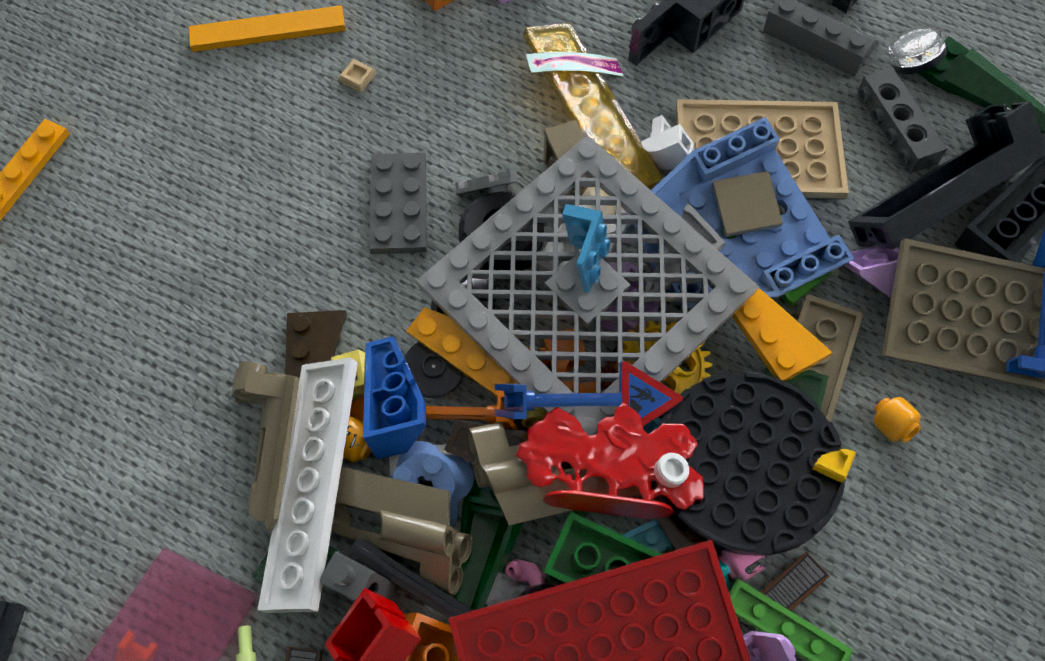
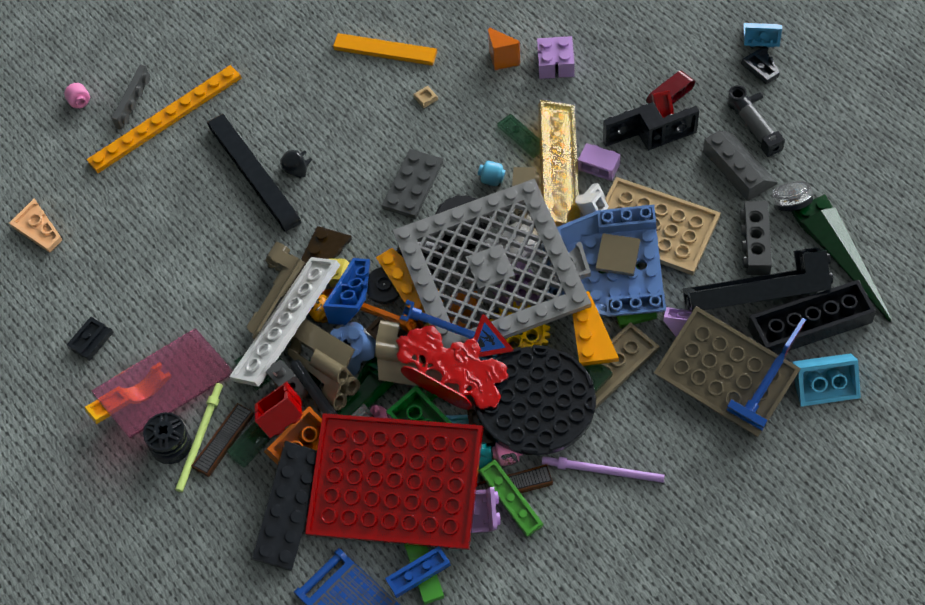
camera: 30 degrees right, 5 degrees down
(152, 266) = (254, 172): none -> black beam
(210, 230) = (294, 163): none -> black piece
(493, 184) = (470, 189): light grey wing -> none
(505, 150) = (491, 173): none -> medium azure head
(517, 86) = (520, 134): none -> clear green tile
(573, 62) = (560, 131): sticker -> none
(588, 233) = (496, 243): dark azure bracket -> none
(643, 87) = (599, 161): none -> lavender brick
(671, 470) = (482, 383): white tile -> none
(828, 540) = (563, 463): none -> lavender bar
(835, 464) = (582, 418): yellow tile -> none
(897, 419) = (643, 413): light orange head -> none

